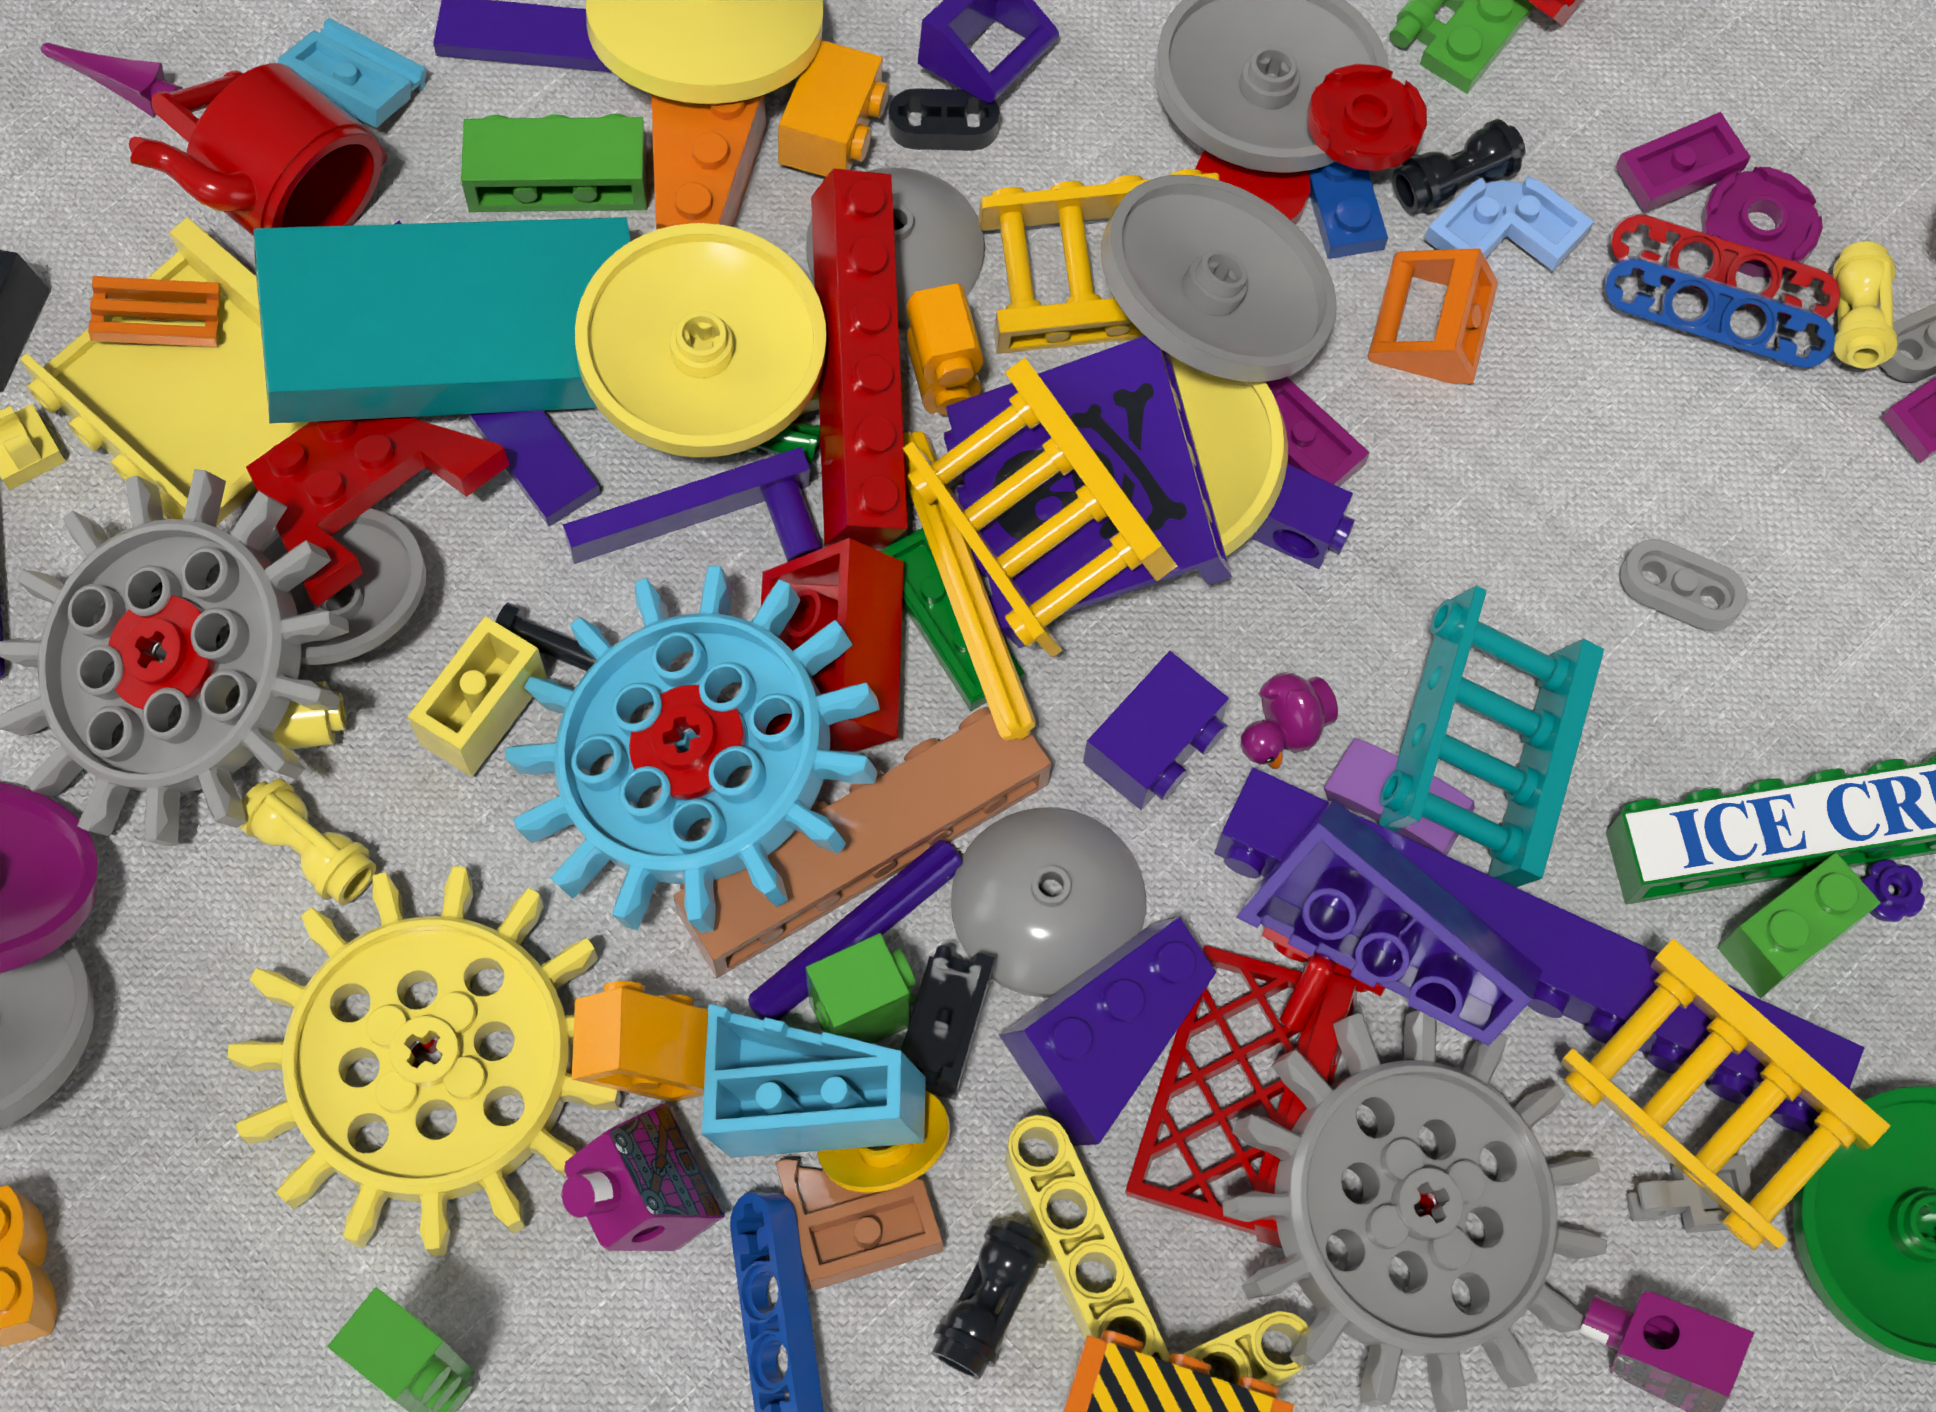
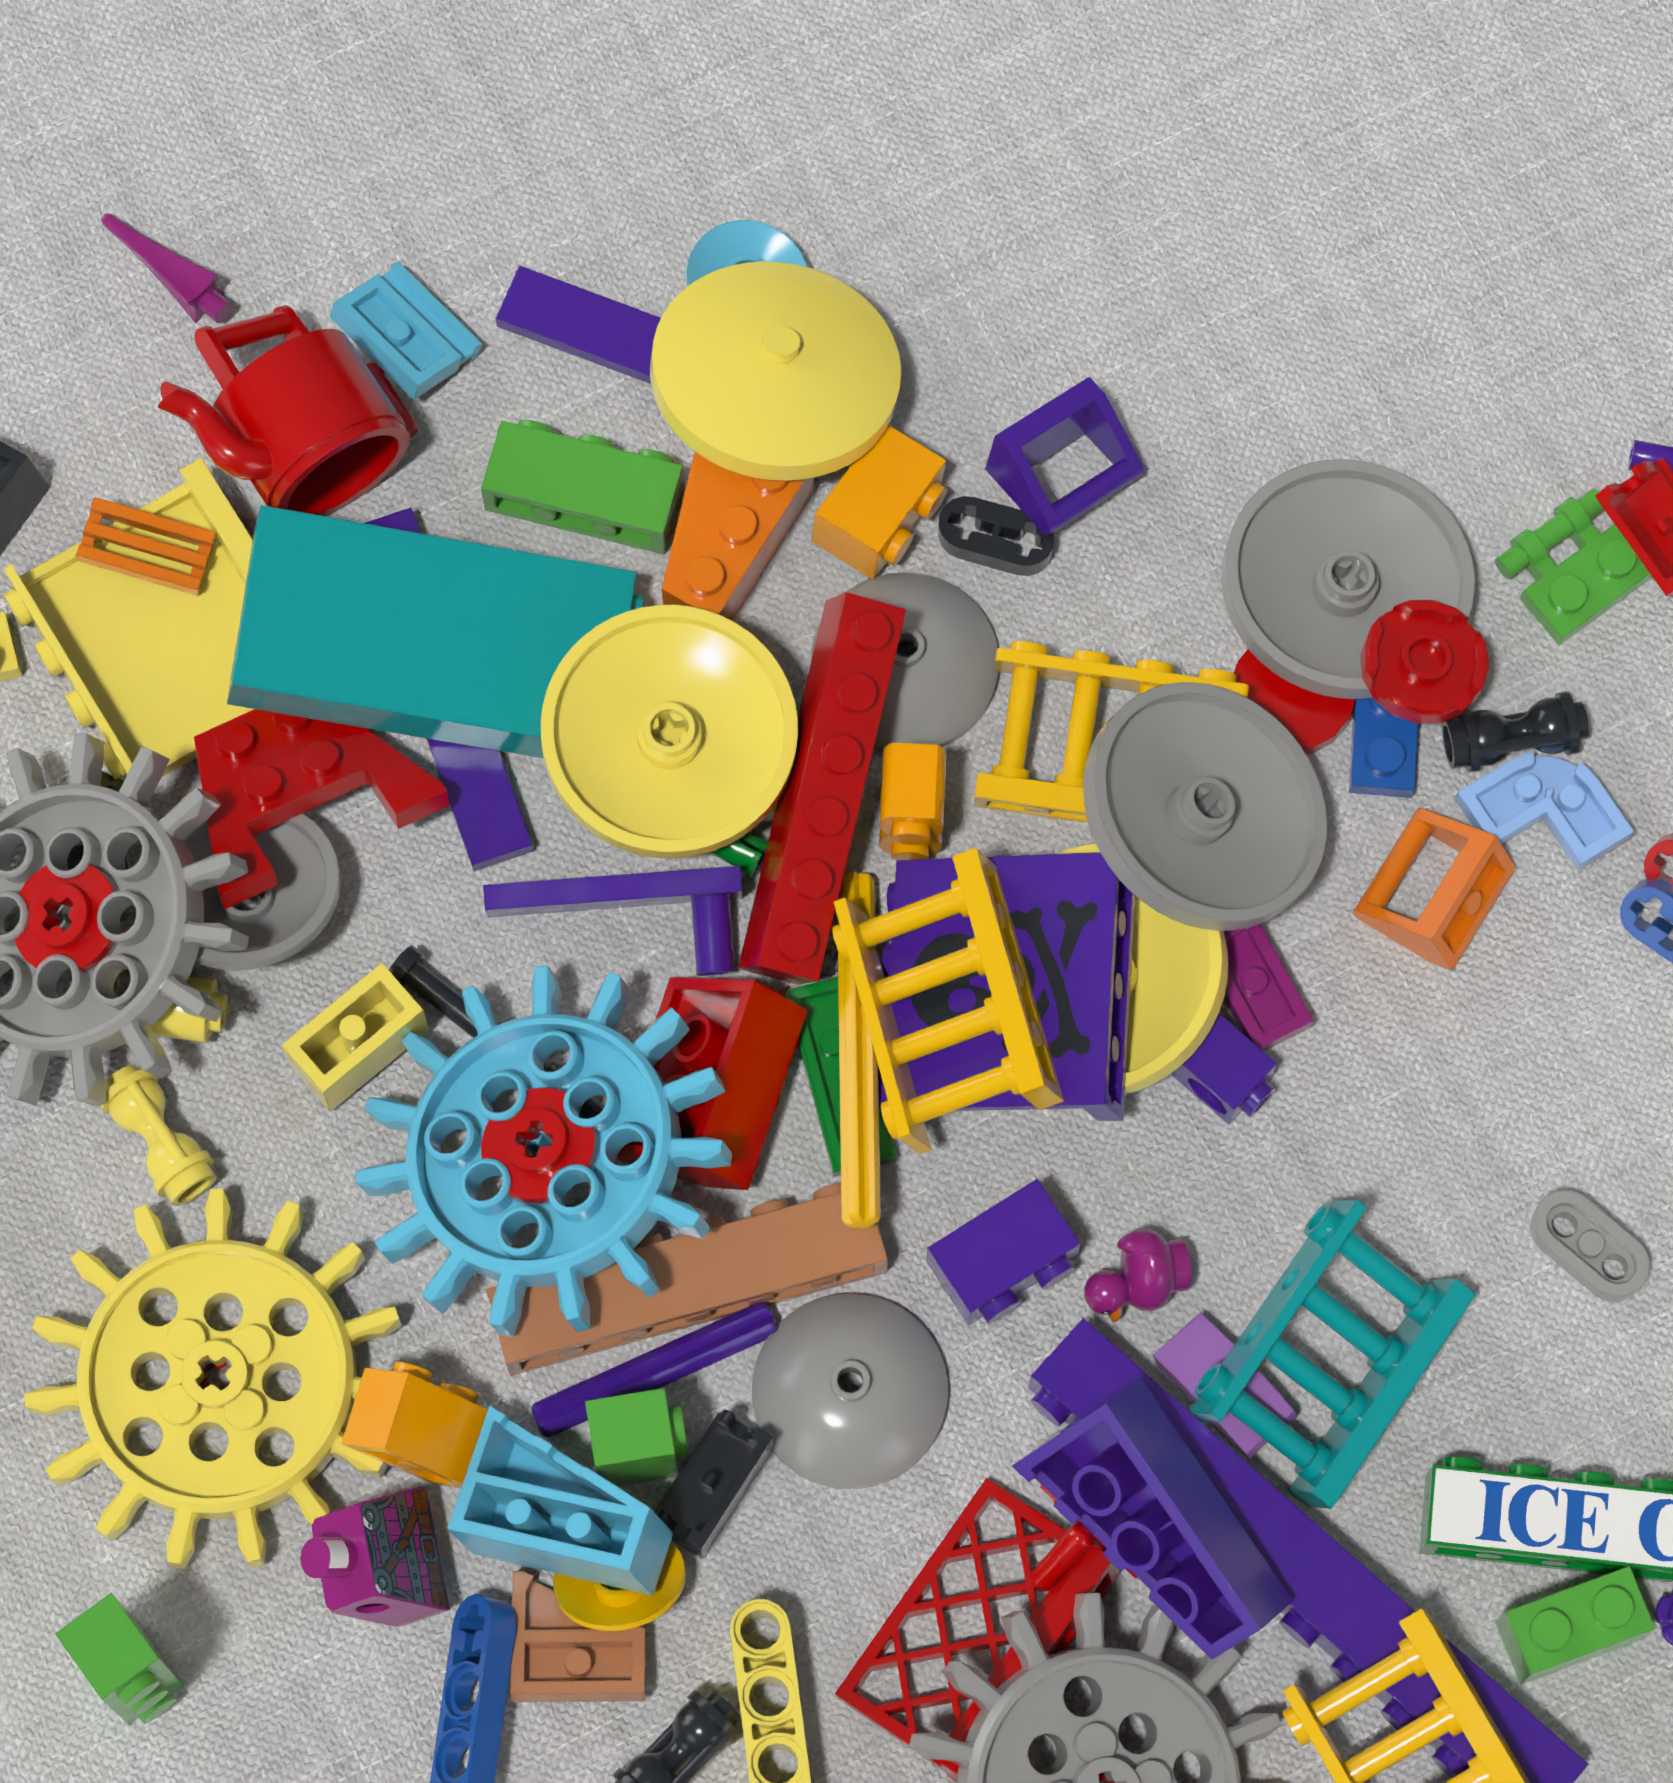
camera: 20 degrees right, 5 degrees up
(1108, 1027) = (864, 1533): dark purple wedge -> none

